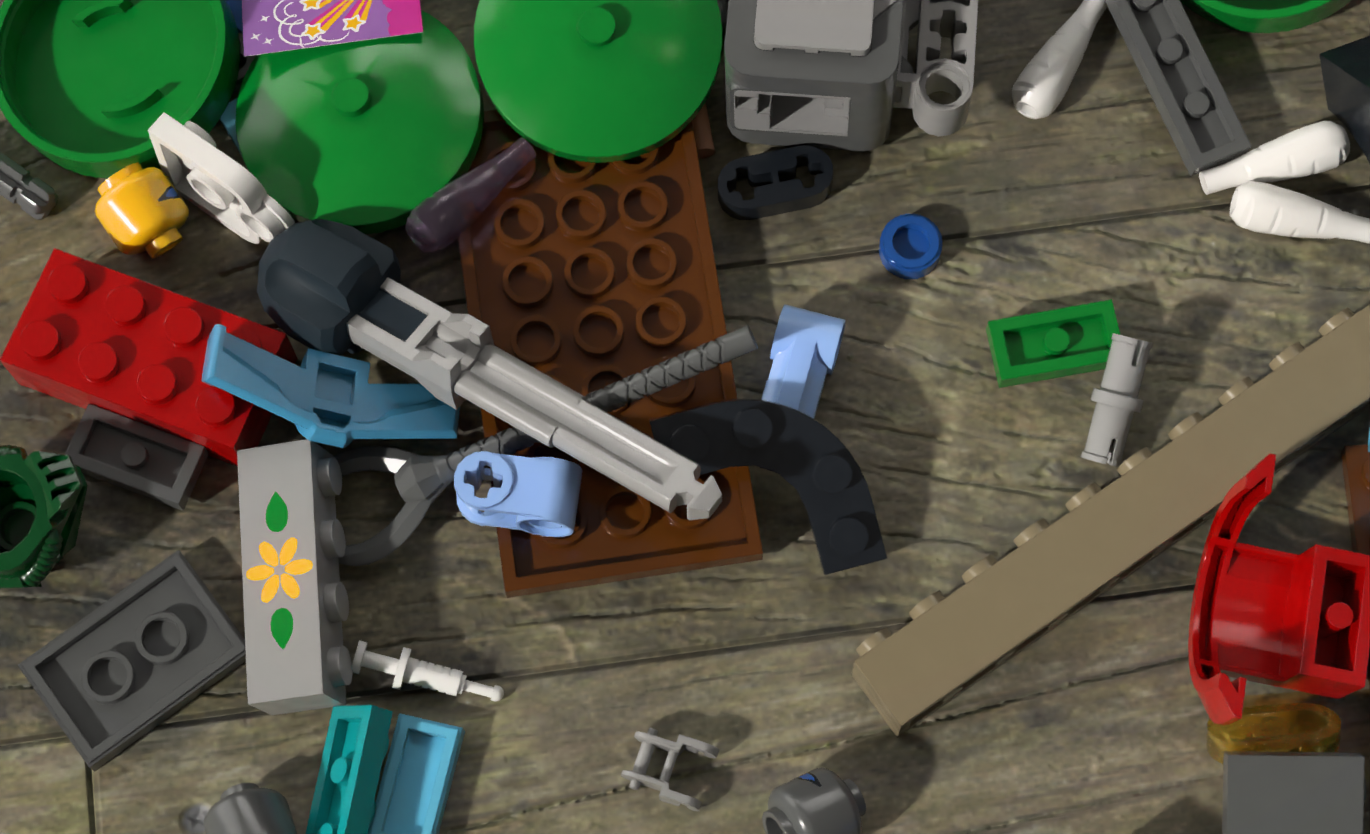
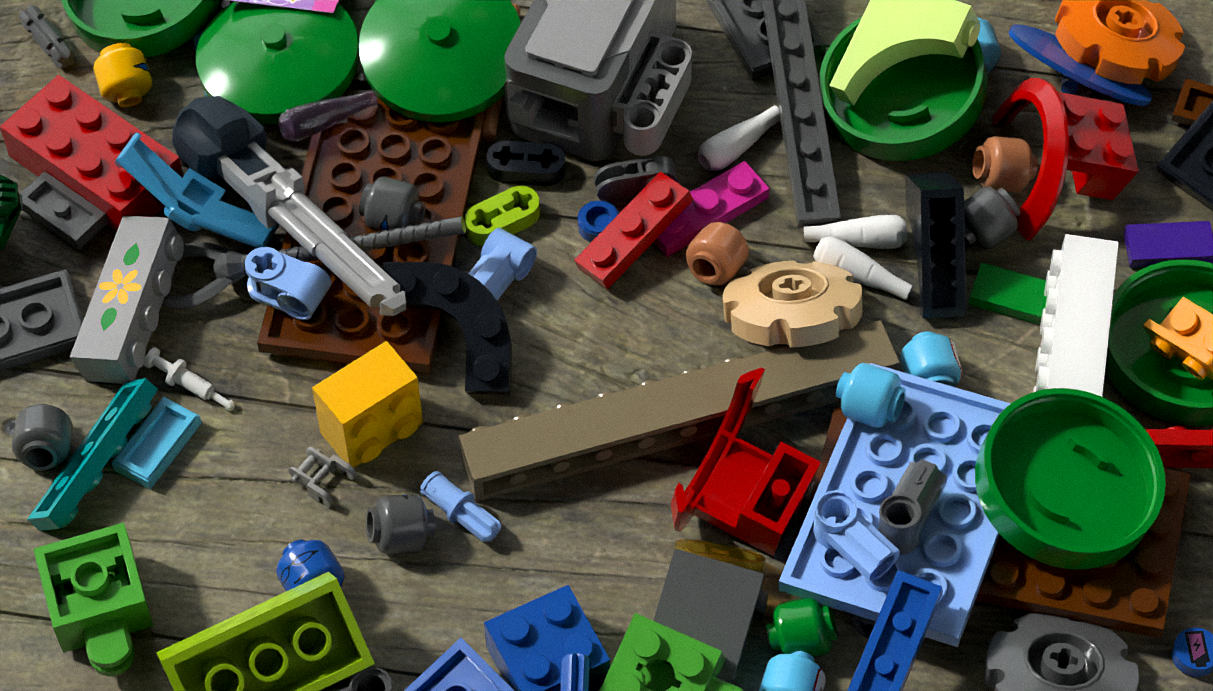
camera: 15 degrees right, 15 degrees down
(216, 181) = (170, 61): white plate -> none
(626, 325) = (391, 204): none -> dark grey head
(711, 652) = (368, 405): none -> yellow brick
(762, 267) = (500, 213): none -> lime beam
(886, 760) = (460, 506): none -> light blue axle
(943, 167) = (626, 179): none -> dark grey piece
(972, 251) = (633, 230): none -> plate
(1052, 182) = (714, 201): none -> dark pink plate
(1052, 343) = (668, 298): green plate -> none
(1101, 254) = (717, 253): none -> nougat head
(1116, 400) = (693, 335): light grey pin -> none
(1240, 308) = (792, 303): none -> tan piece

